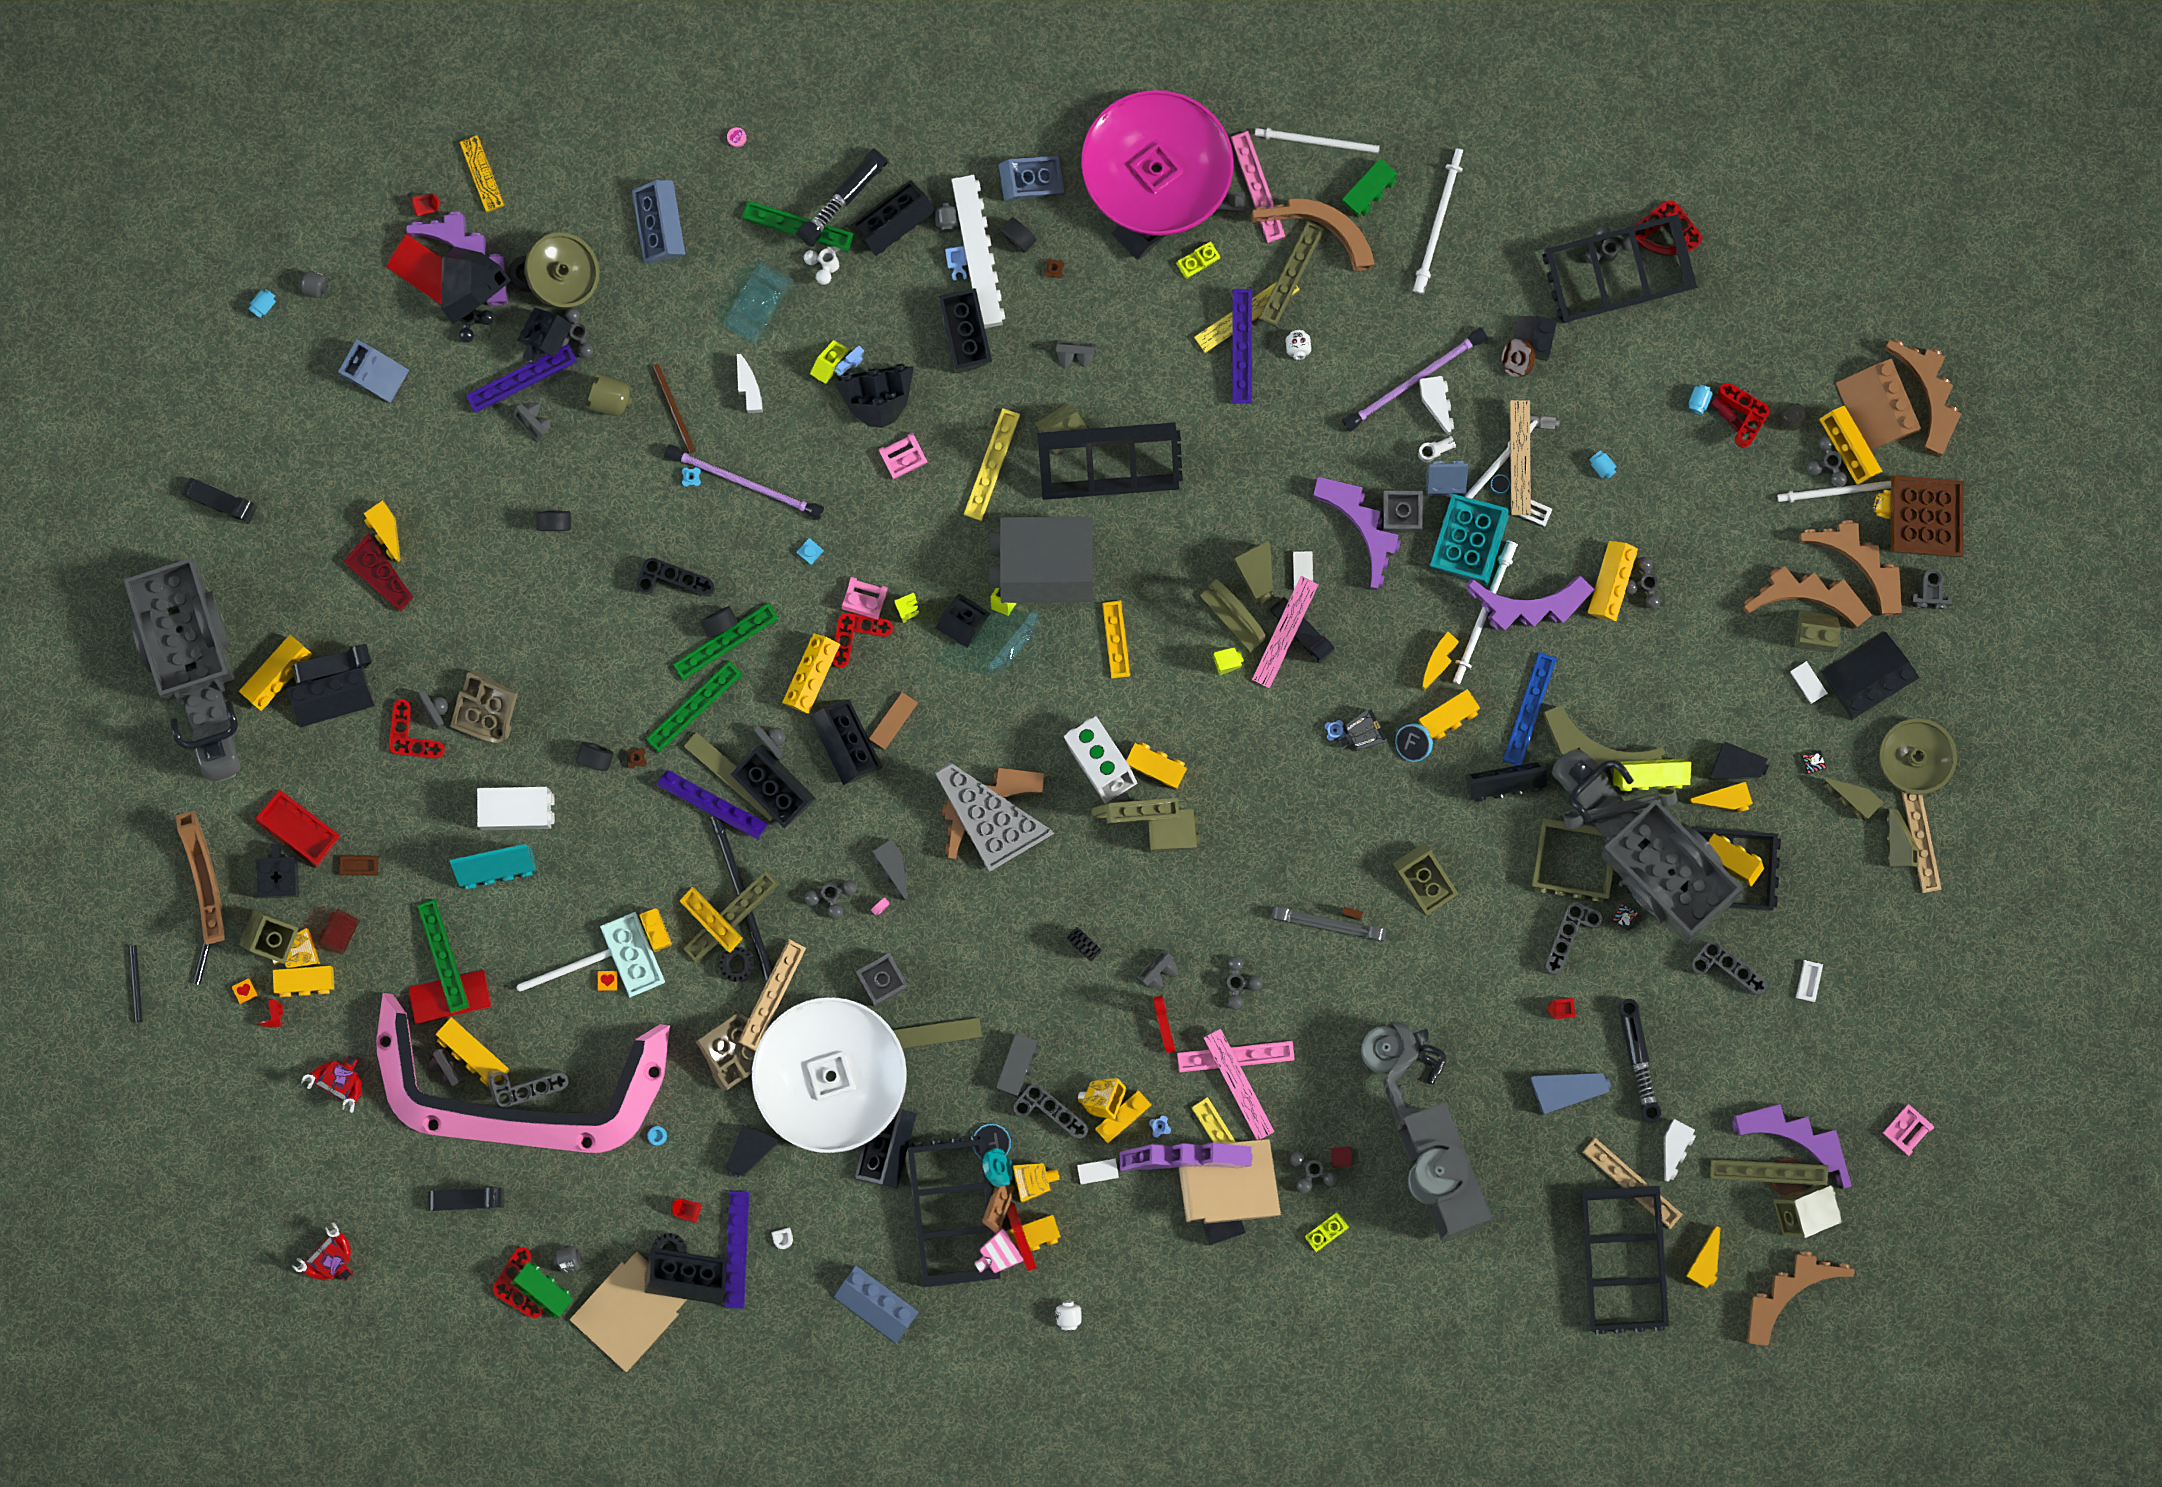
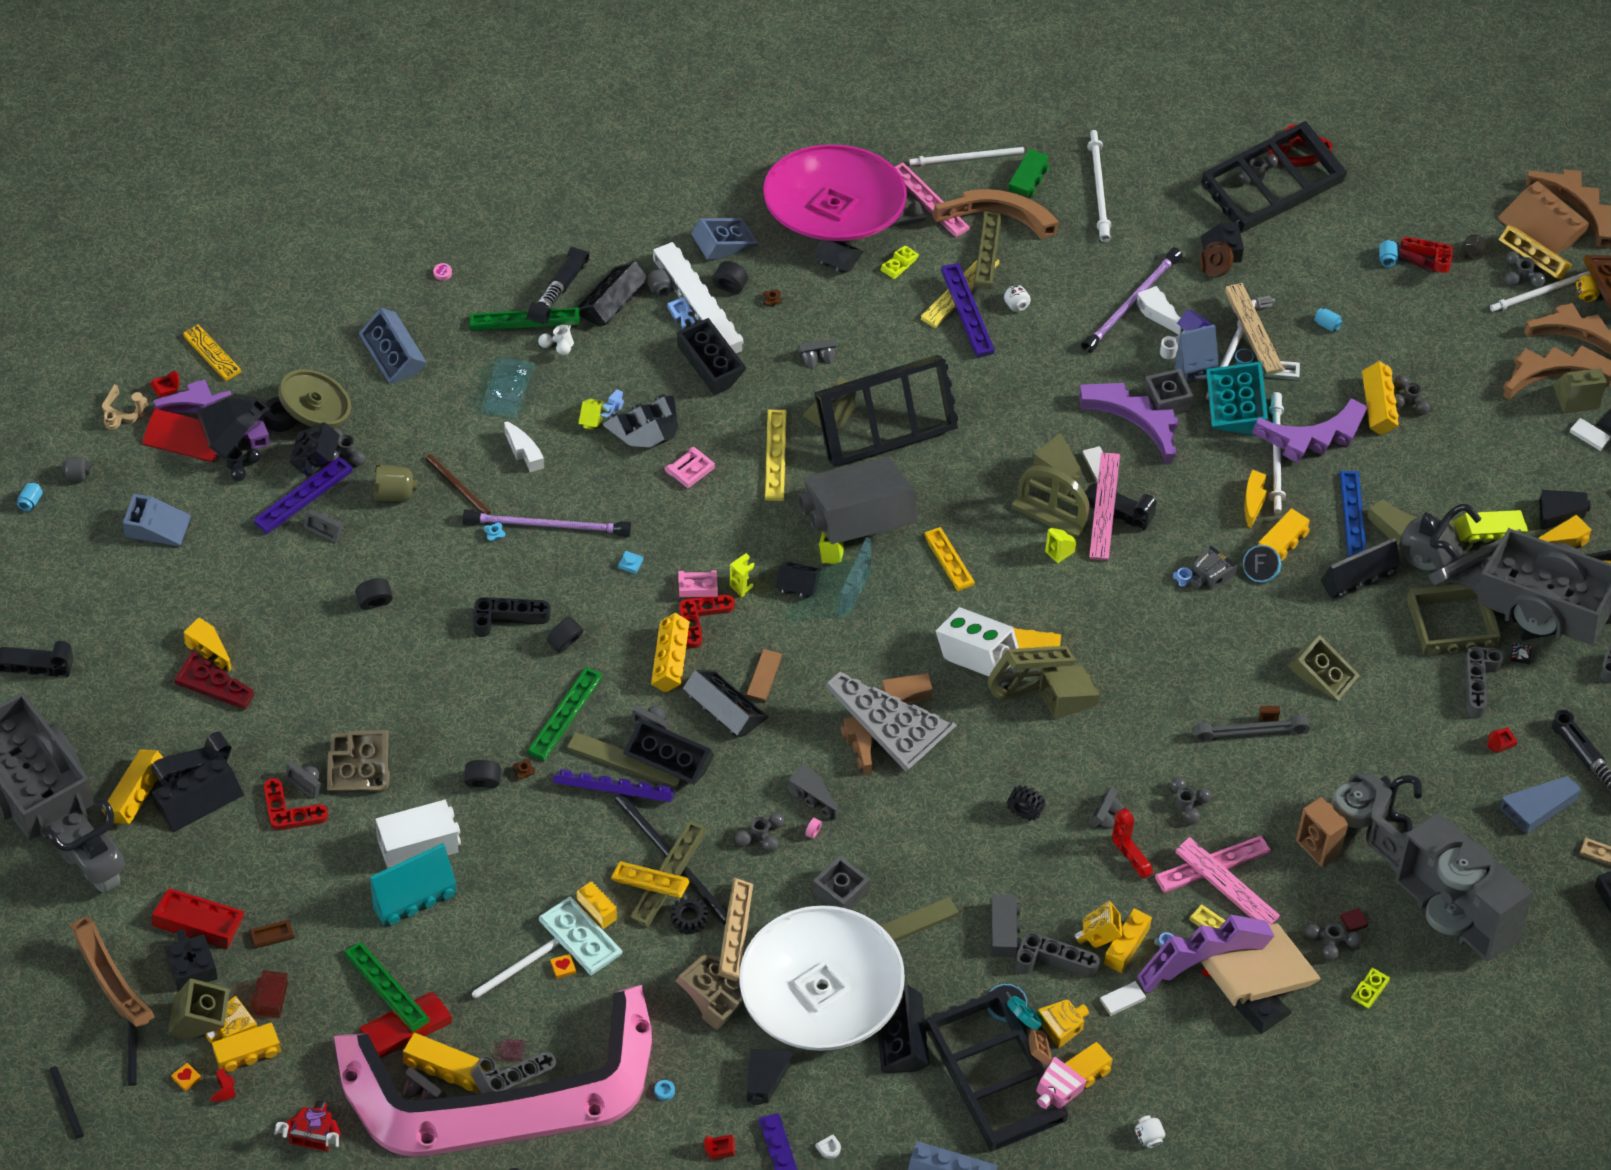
camera: 25 degrees left, 30 degrees down
(369, 228) = (114, 418): none -> tan piece
(537, 1053) = (513, 1049): none -> clear pink tile
(725, 641) = (576, 653): green tile -> none
(1020, 1237) = (1071, 1056): red beam -> none
(1342, 1066) = (1321, 831): none -> medium nougat brick
(1462, 439) = (1192, 320): none -> dark purple brick

